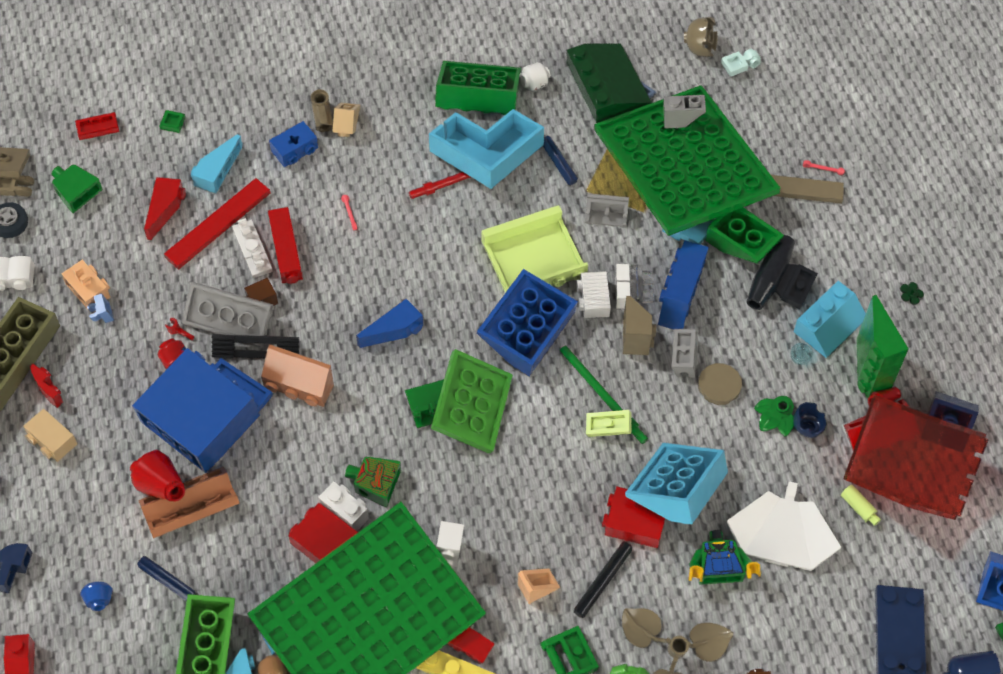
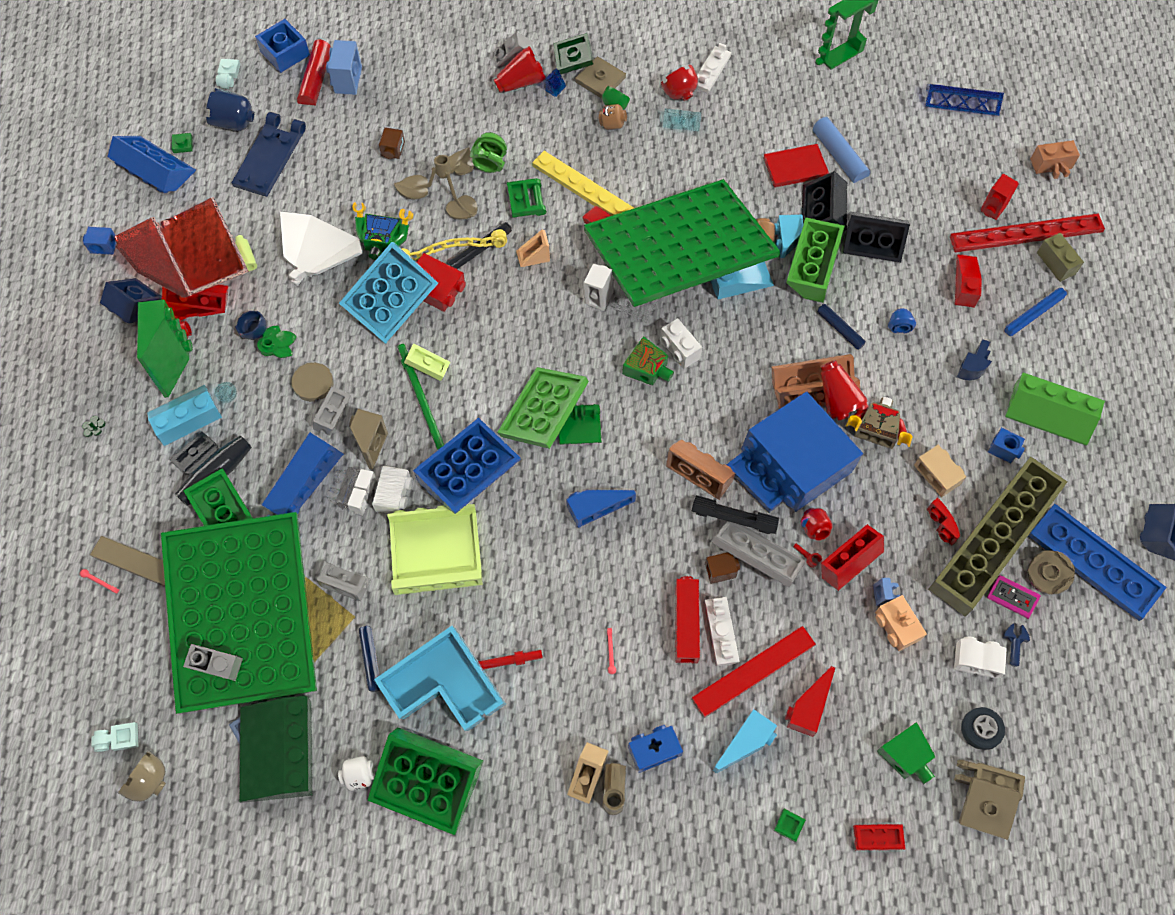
camera: 165 degrees left, 5 degrees up
(112, 466) = (880, 424): none -> torso
(135, 327) = (852, 557): none -> red brick
(319, 533) = (704, 322): red brick -> none
(582, 582) = (497, 237): none -> light yellow piece

